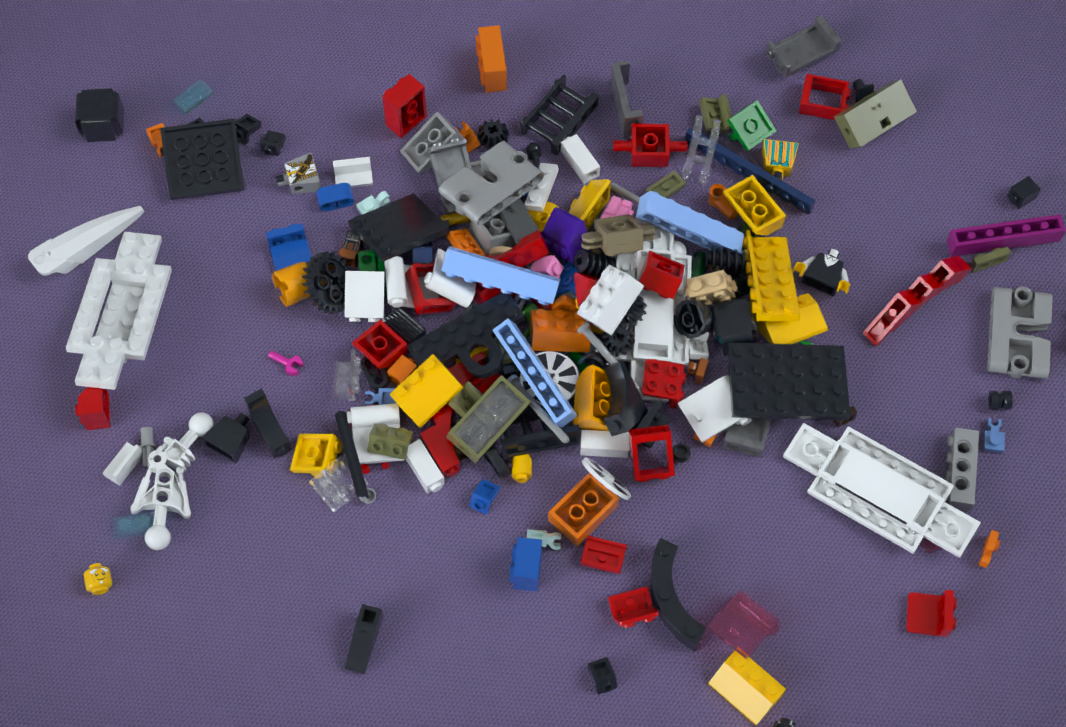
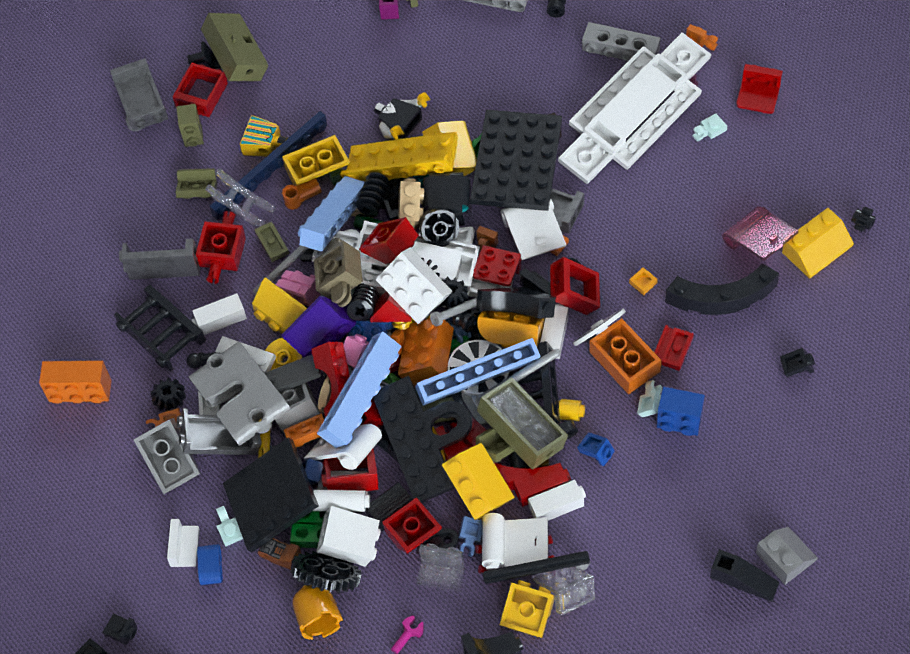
camera: 75 degrees left, 5 degrees down
(288, 245) = (268, 618): blue bracket -> none
(300, 175) = (174, 598): torso -> none
(389, 441) = (527, 526): olive bracket -> none
(393, 677) = (785, 554): none -> light grey slope
(401, 369) = (443, 511): orange brick -> none
(404, 105) = (117, 472): red brick -> none
(632, 607) = (735, 327): red bracket -> none
(675, 520) = (643, 281): none -> light orange plate
(750, 126) = (222, 151): bracket -> none
(776, 94) = (190, 125): none -> olive brick
(876, 570) = (710, 126): none -> light aqua plate
(906, 302) = (451, 51): red arch -> none
(993, 439) = (592, 15): medium blue plate -> none

